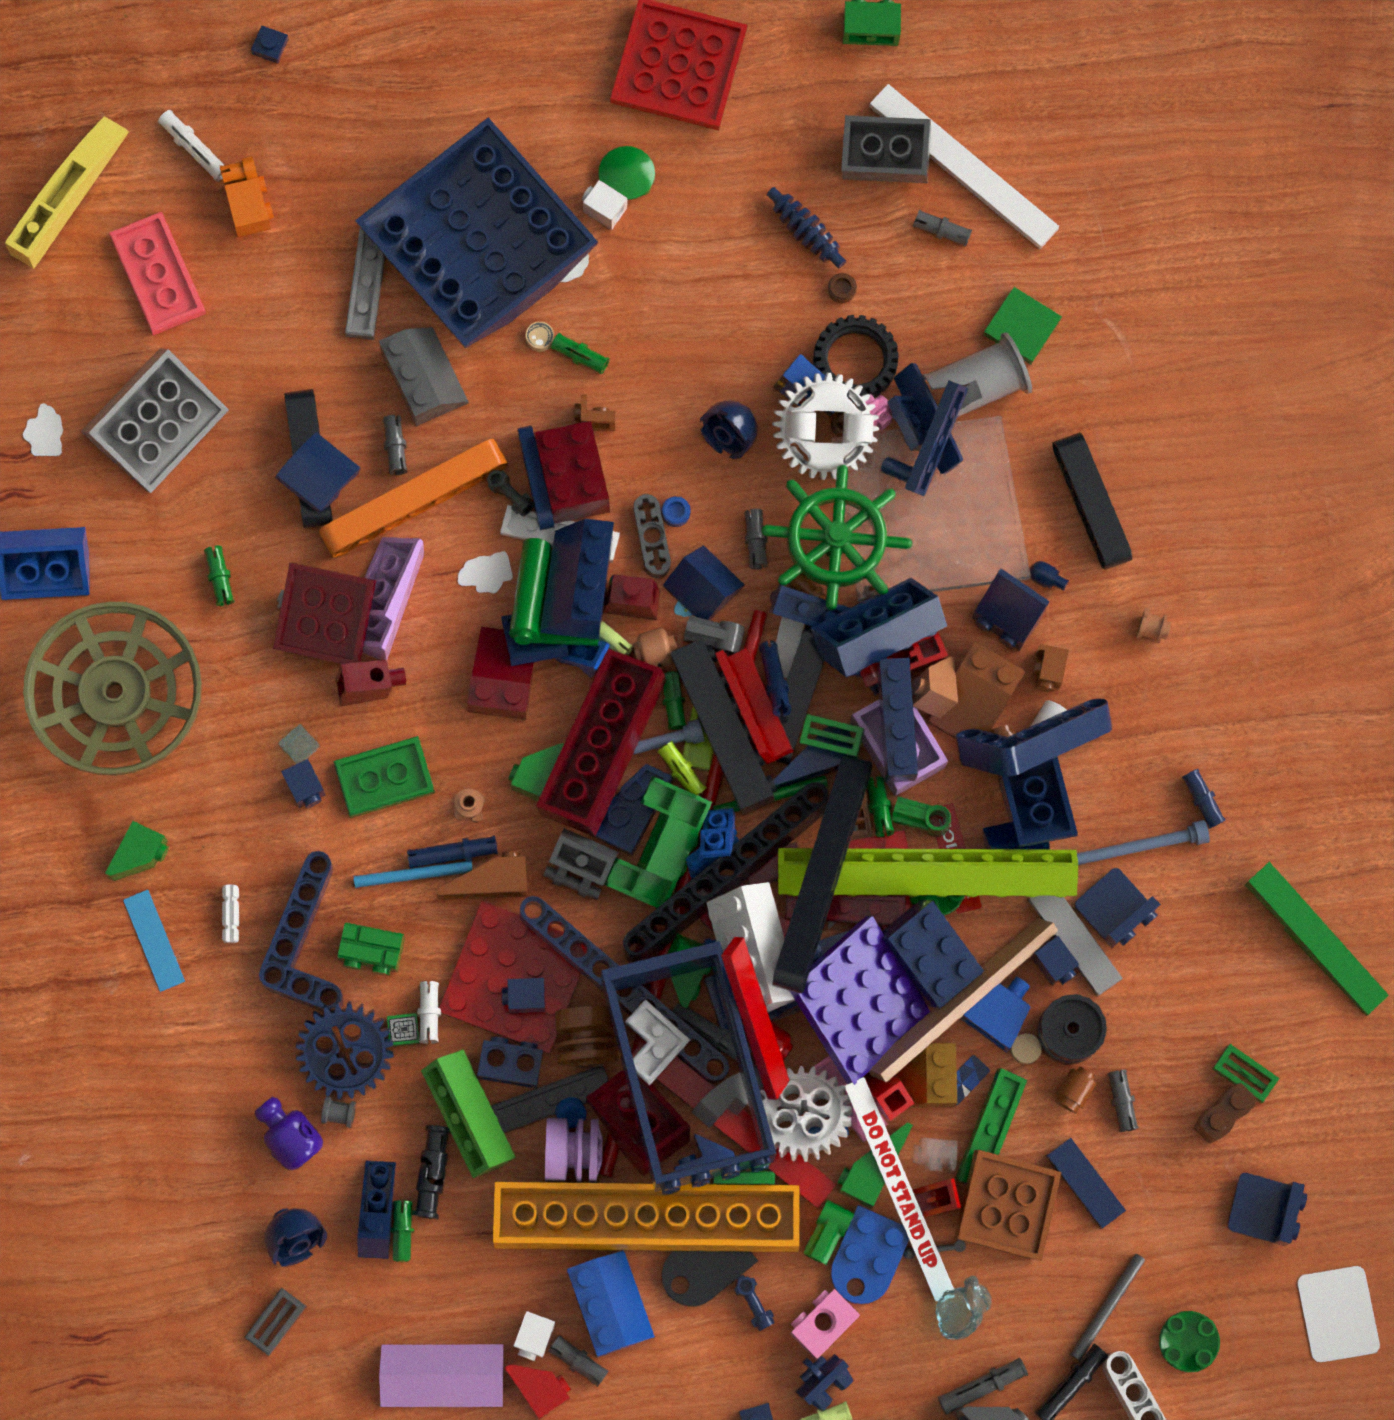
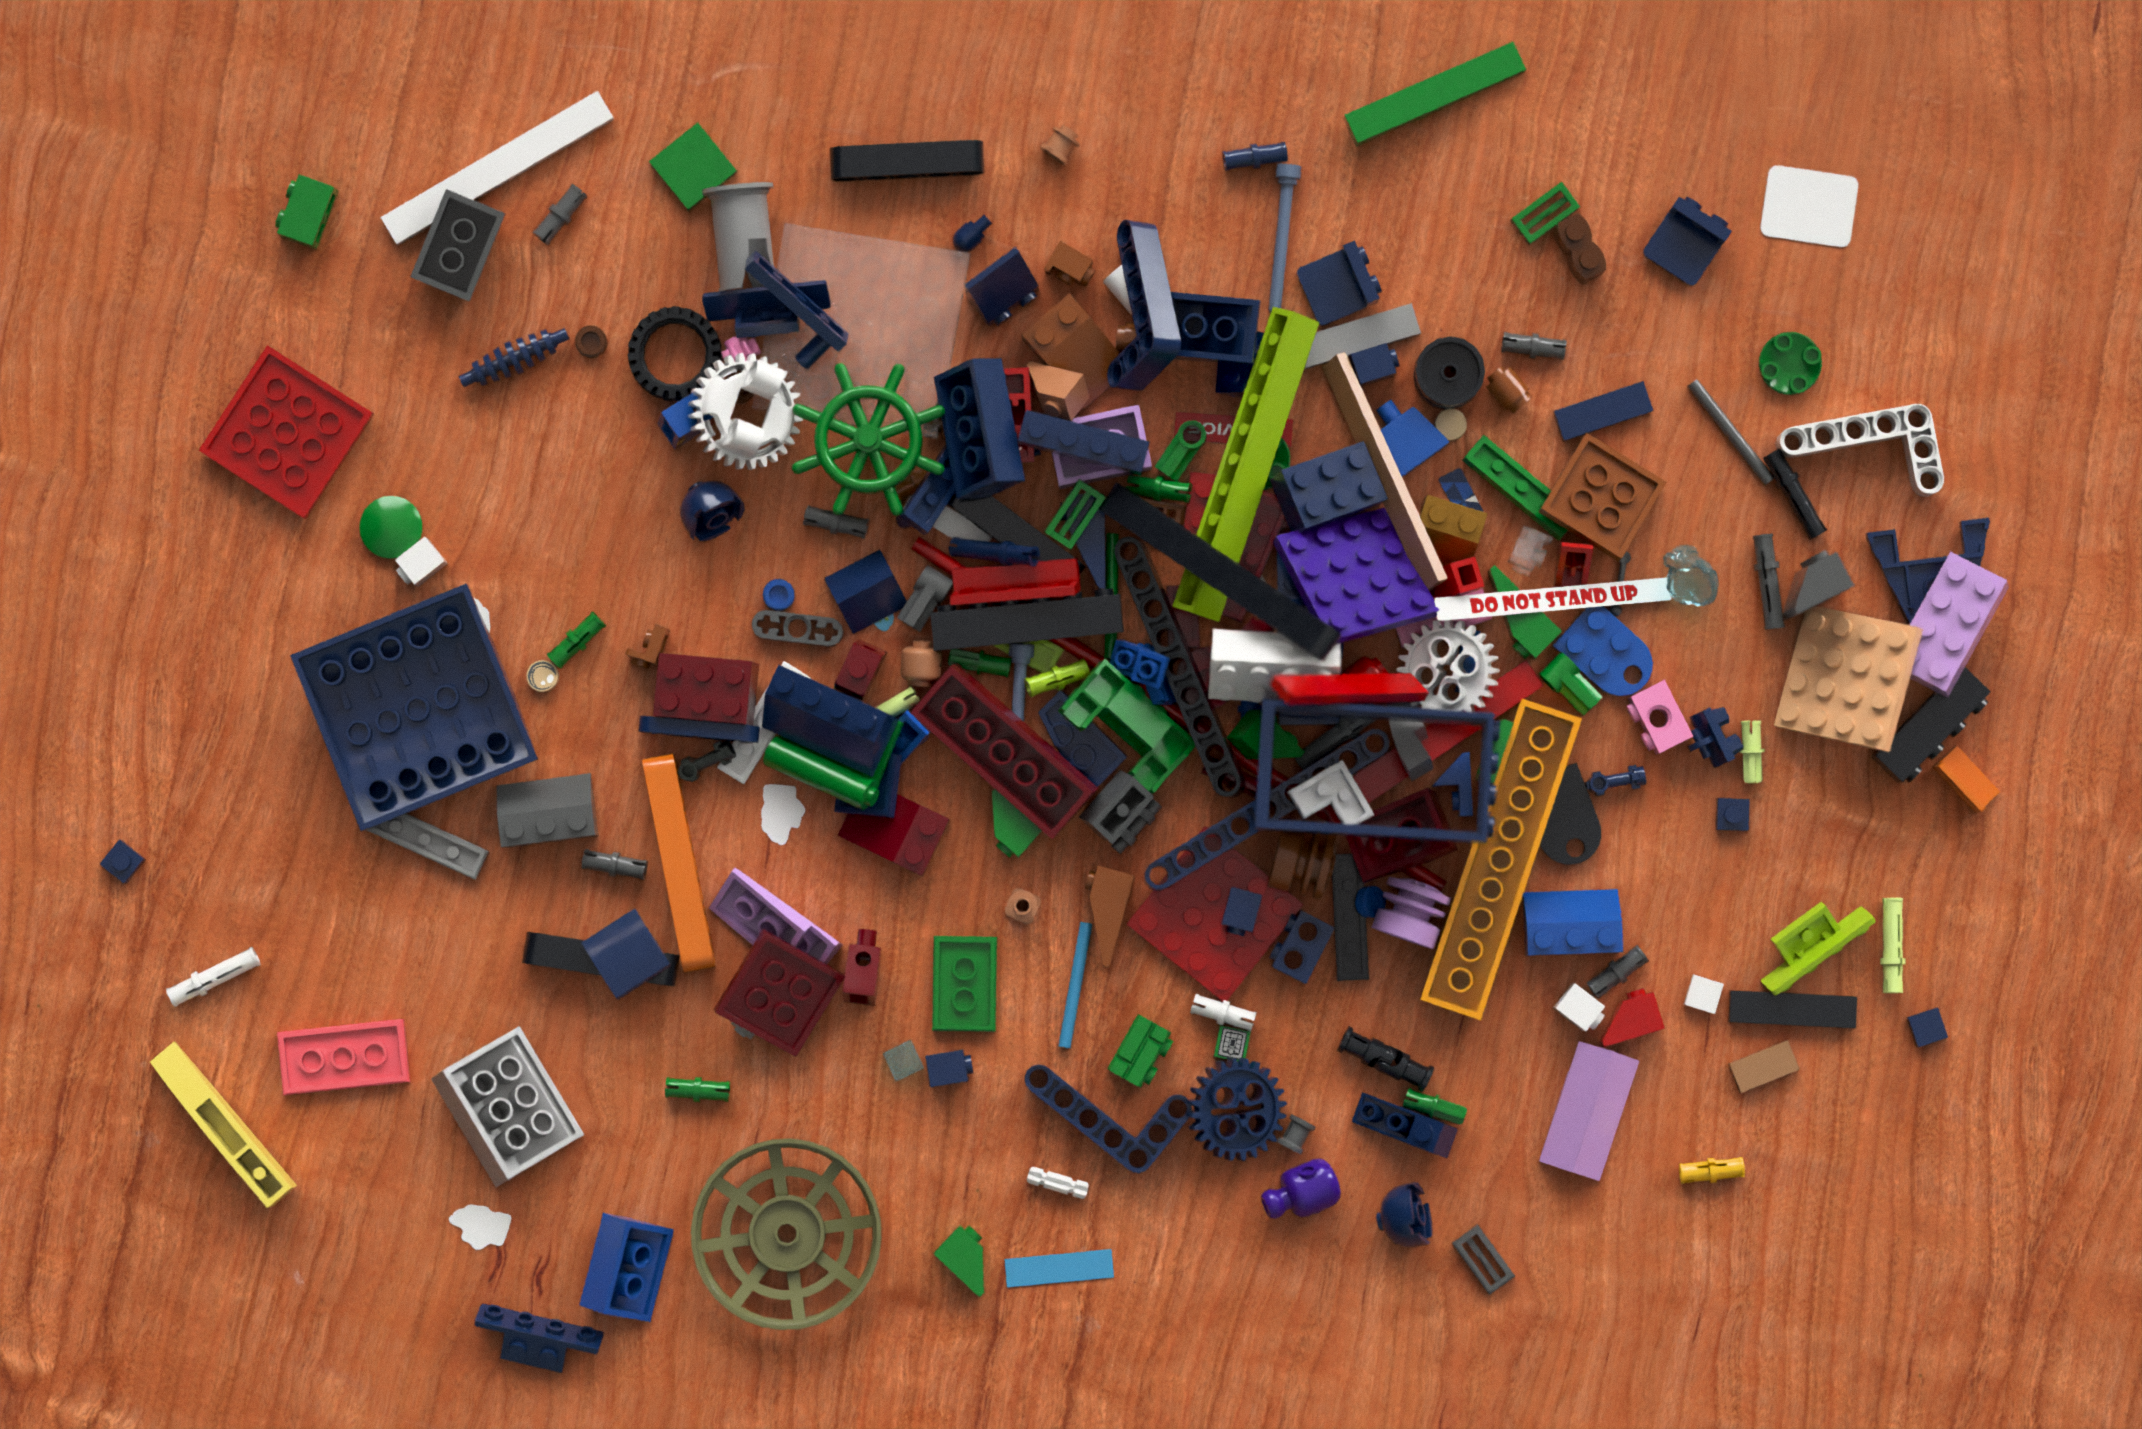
camera: 65 degrees left, 10 degrees up
(246, 198) = (290, 938): orange hinge -> none
(453, 851) = (1066, 937): dark blue pin -> none
(468, 1113) = (1340, 1005): bright green brick -> none

